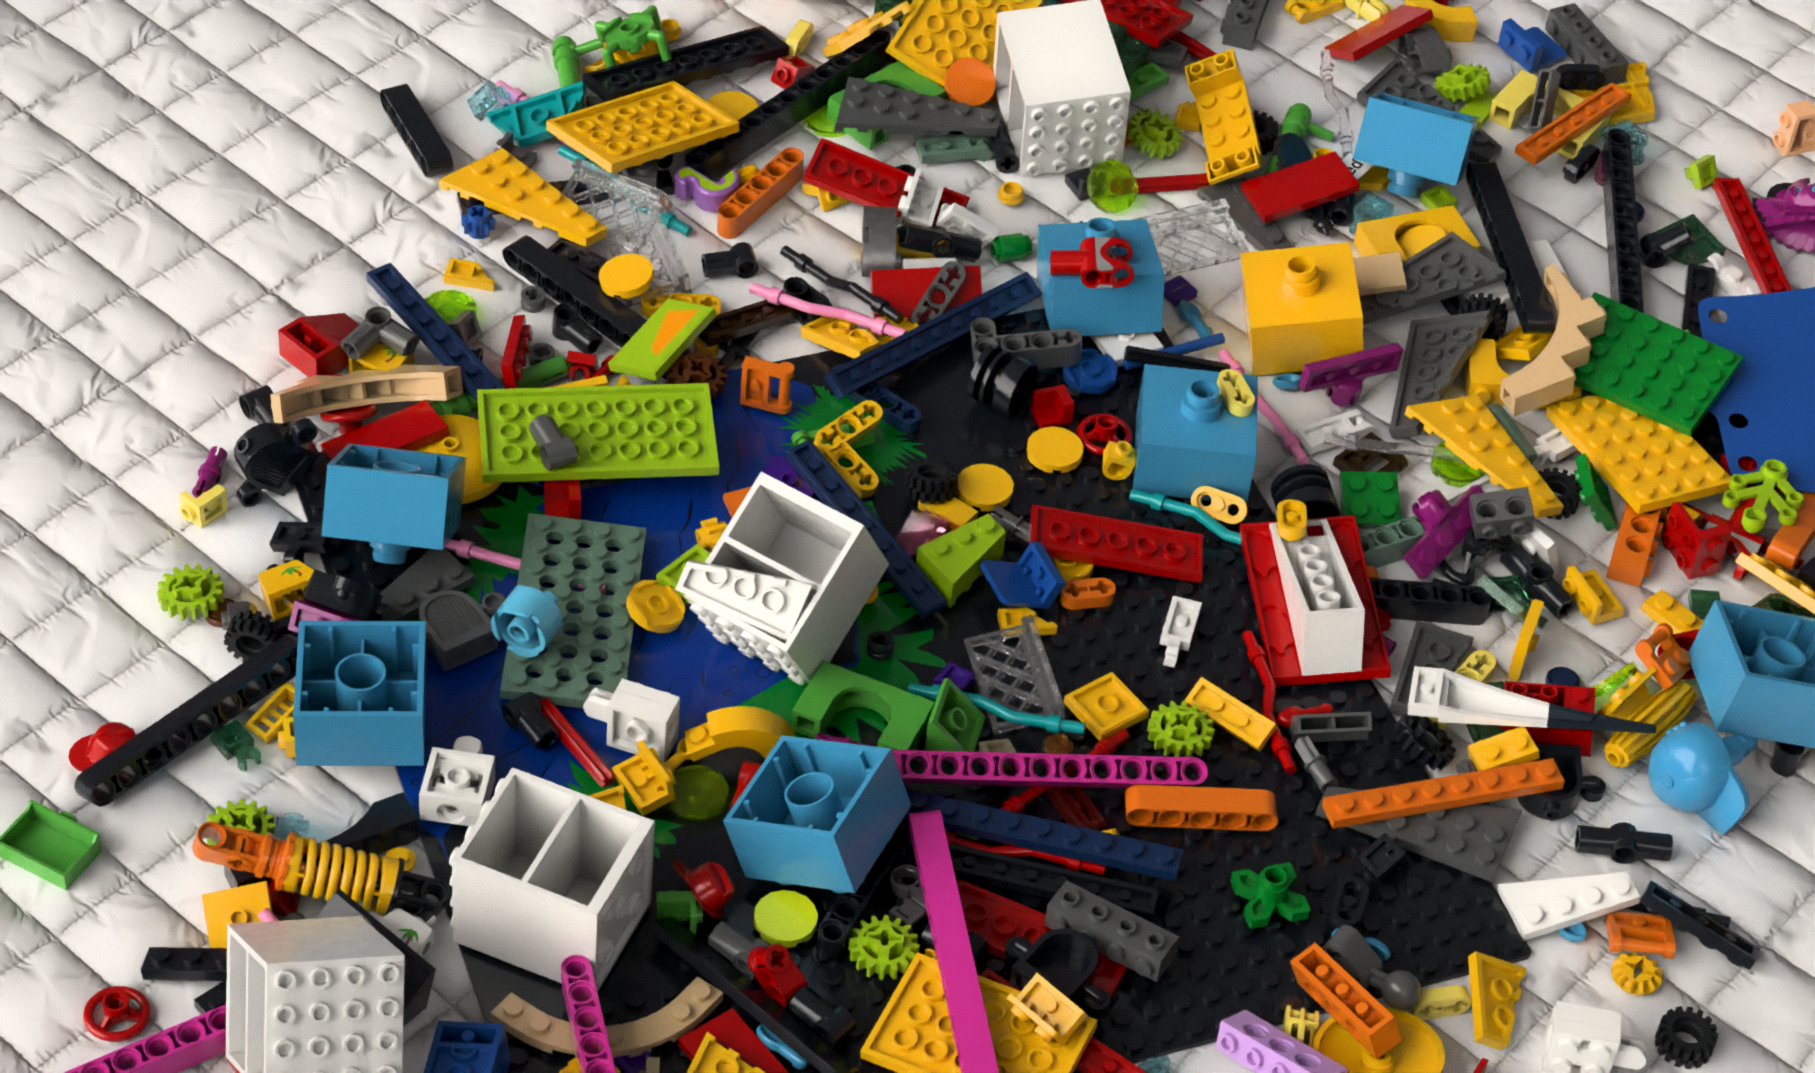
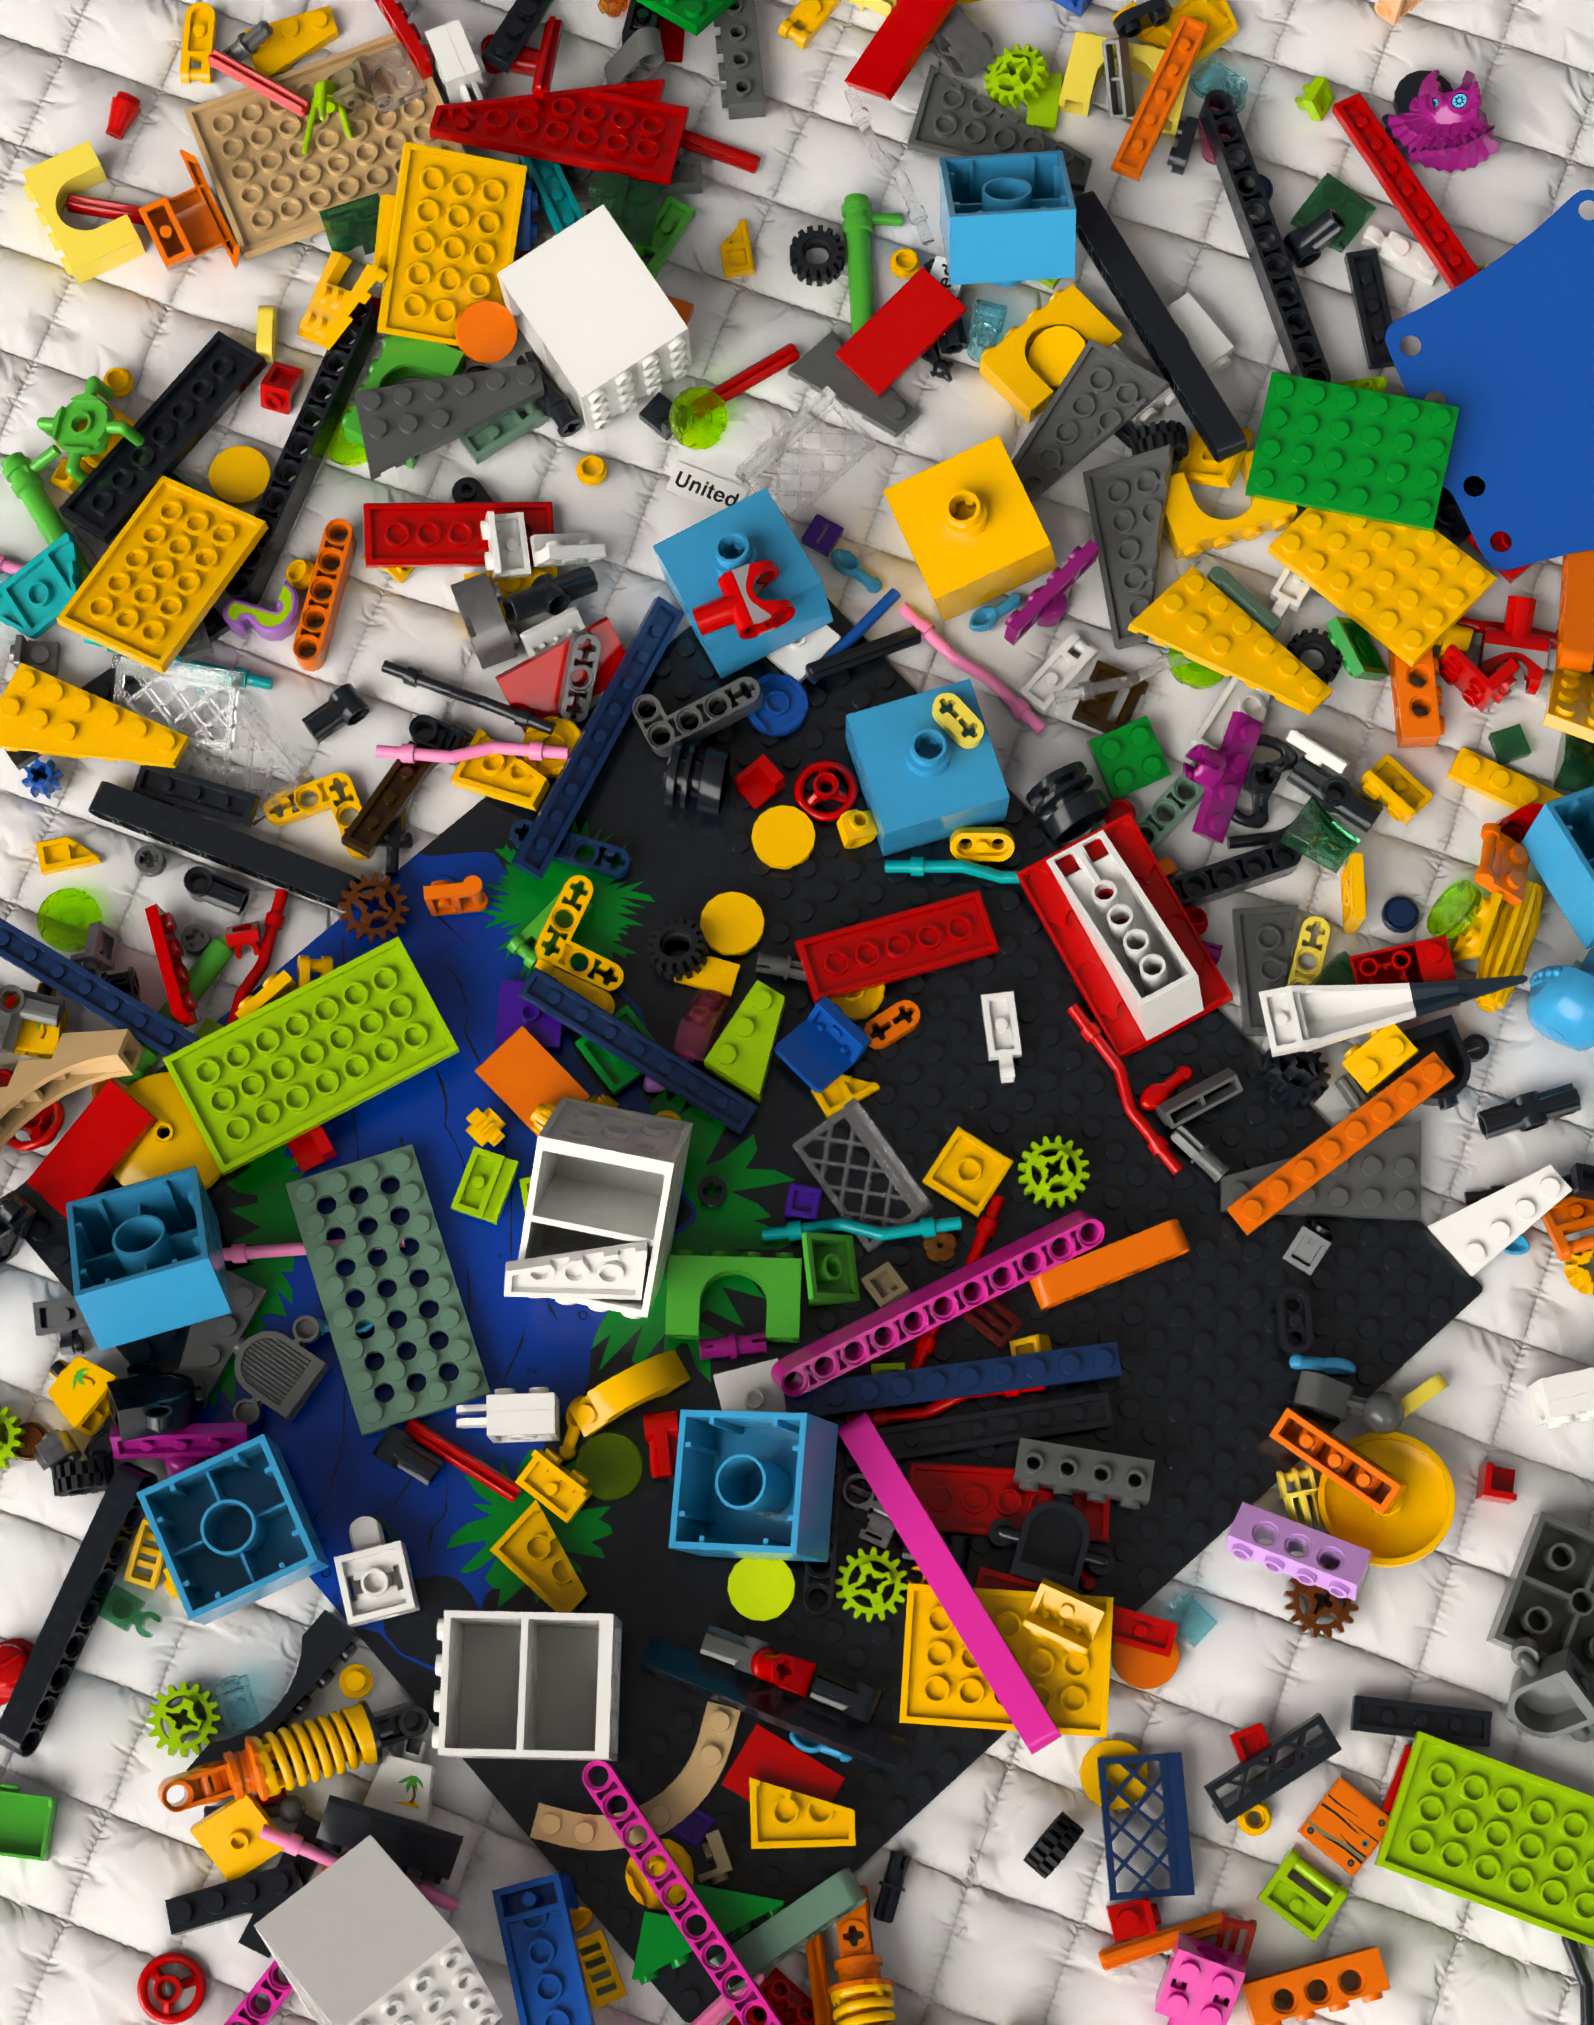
camera: 15 degrees left, 30 degrees up
(527, 620) = (357, 1357): medium azure brick -> none
(554, 447) = (282, 1111): dark grey piece -> none
(626, 276) = (241, 804): yellow tile -> none
(655, 606) = (467, 1249): yellow tile -> none
(662, 339) = (318, 880): lime tile -> none
(679, 905) = (649, 1625): bright green bracket -> none
(709, 885) = (670, 1594): red piece -> none
(1011, 247) = (624, 554): green brick -> none
(1154, 133) = (711, 297): lime gear -> none
(1225, 116) = (787, 267): yellow slope -> none
(1231, 714) = (1094, 1127): yellow plate -> none
(1269, 894) = (1212, 1361): green plant -> none
(1290, 150) = (874, 281): black tile -> none
(1291, 520) = (1071, 858): yellow plate -> none
(1379, 273) = (1029, 429): tan piece -> none
(1493, 997) = (1466, 1367): yellow wing -> none
(1500, 506) = (1279, 747): dark grey brick -> none
(1552, 372) = (1268, 434): tan arch -> none
(1772, 473) = (1535, 587): lime plant -> none

